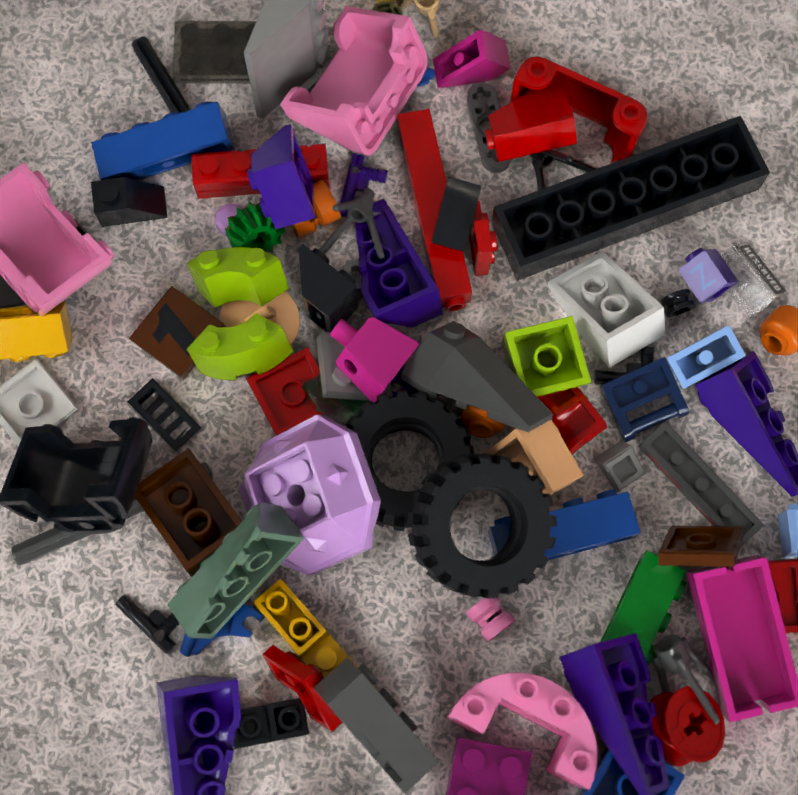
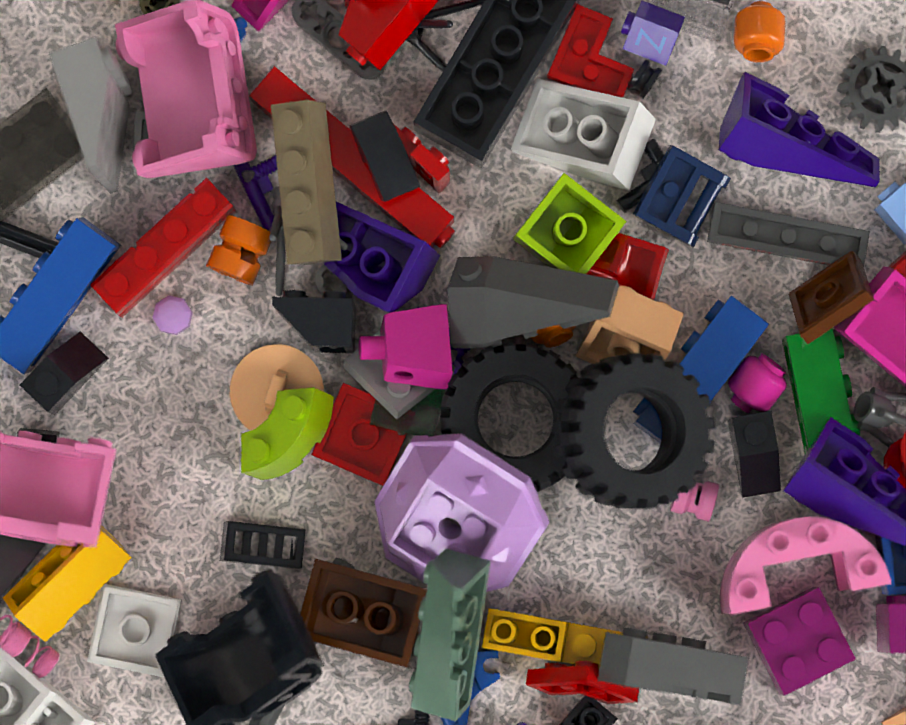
camera: 35 degrees left, 10 degrees up
(172, 329) = (209, 460): reddish brown tile -> none
(238, 275) = (227, 366): lime brick -> none
(252, 229) = (207, 311): green gear -> none
(283, 179) = (207, 251): dark purple slope -> none
(388, 191) = (306, 182): none -> dark tan brick
(560, 619) = (755, 453): none -> black slope
(599, 570) = (757, 383): none -> dark pink head
(620, 465) = (703, 272): light grey slope -> none
(646, 253) = (579, 59): none -> red plate
(705, 357) = (708, 116): light blue slope -> none

